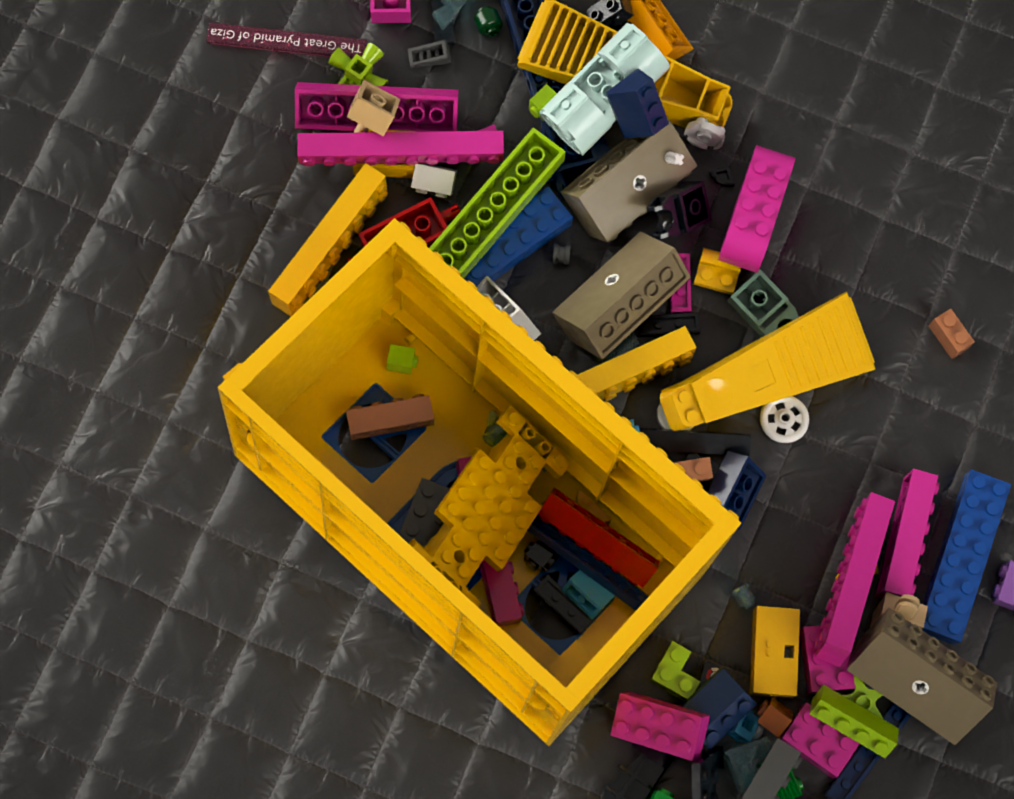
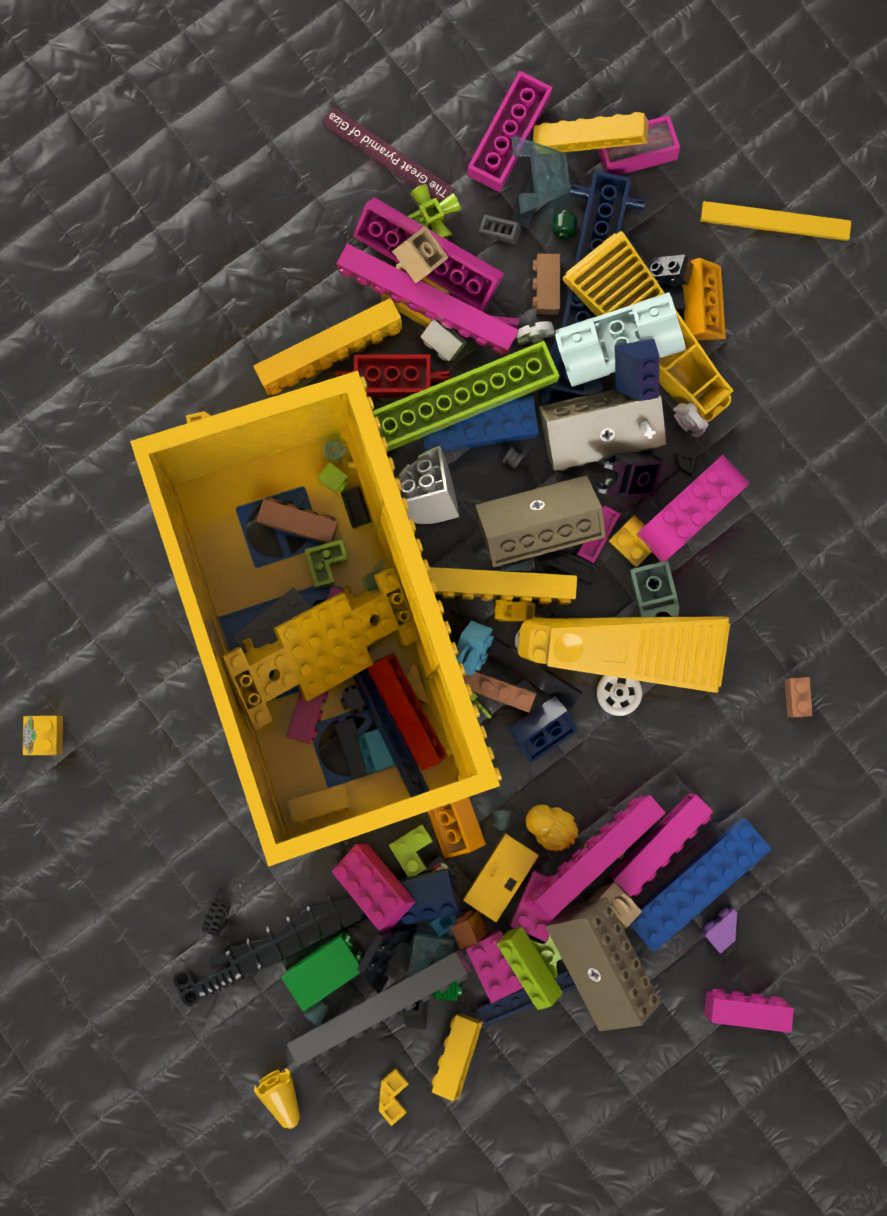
camera: 30 degrees right, 10 degrees up
(245, 761) = (42, 735): none -> yellow slope
(393, 332) = (338, 451): none -> clear light blue brick
(433, 440) = (320, 560): none -> lime brick
(438, 375) = (356, 507): none -> black tile
(502, 81) = (547, 284): none -> medium nougat brick
(518, 129) = (536, 333): none -> white plate
(540, 99) = (566, 318): lime brick -> none
(643, 394) = (513, 611): none -> yellow brick
(702, 626) = (456, 828): none -> light orange slope
(796, 576) = (552, 827): none -> yellow hair

